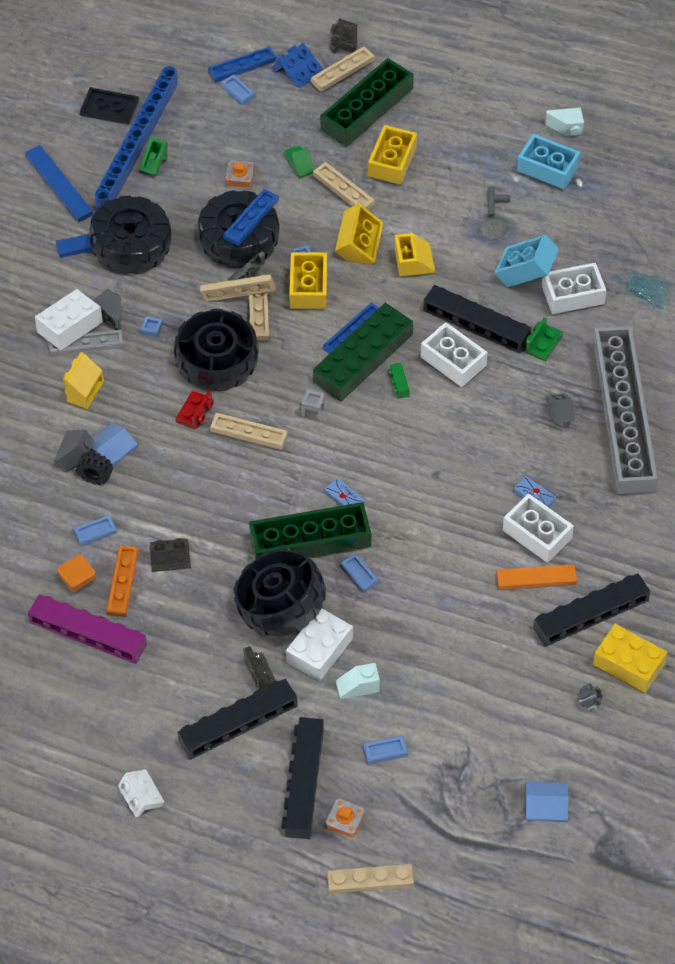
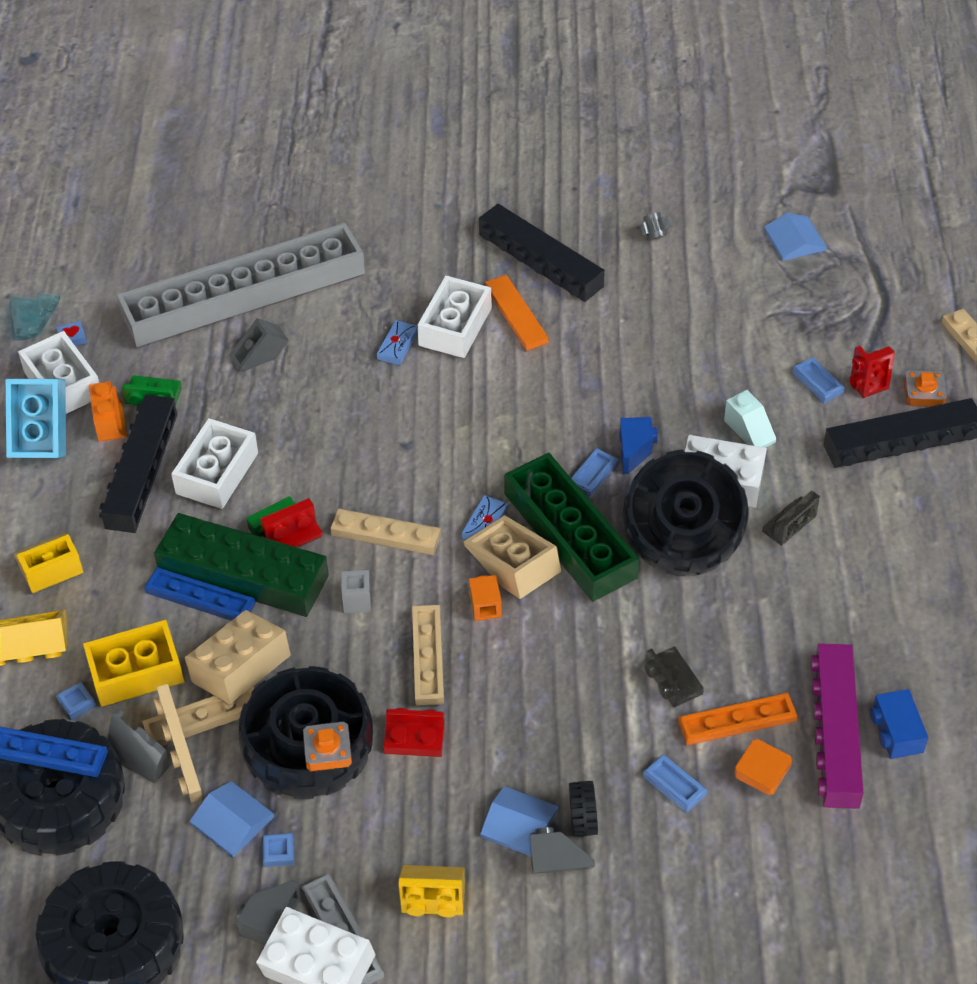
camera: 110 degrees left, 5 degrees down
(70, 662) = (899, 724): none -> blue brick
(182, 308) = (230, 818): none -> medium blue slope
(187, 343) = (327, 746): none -> piece
(237, 718) = (872, 520): black brick -> none
(277, 472) = (485, 597): none -> orange brick
(286, 329) = (237, 656): none -> tan brick
(302, 493) = (515, 556): none -> tan slope
(360, 439) = (386, 531): none -> tan plate
(367, 769) = (871, 371): none -> red bracket
(371, 602) = (636, 441): none -> blue slope
(380, 384) = (292, 525): none -> red bracket
(530, 308) = (107, 412): none -> orange window
(619, 307) = (74, 332): none -> medium blue tile
(630, 658) = (588, 207): yellow brick -> none

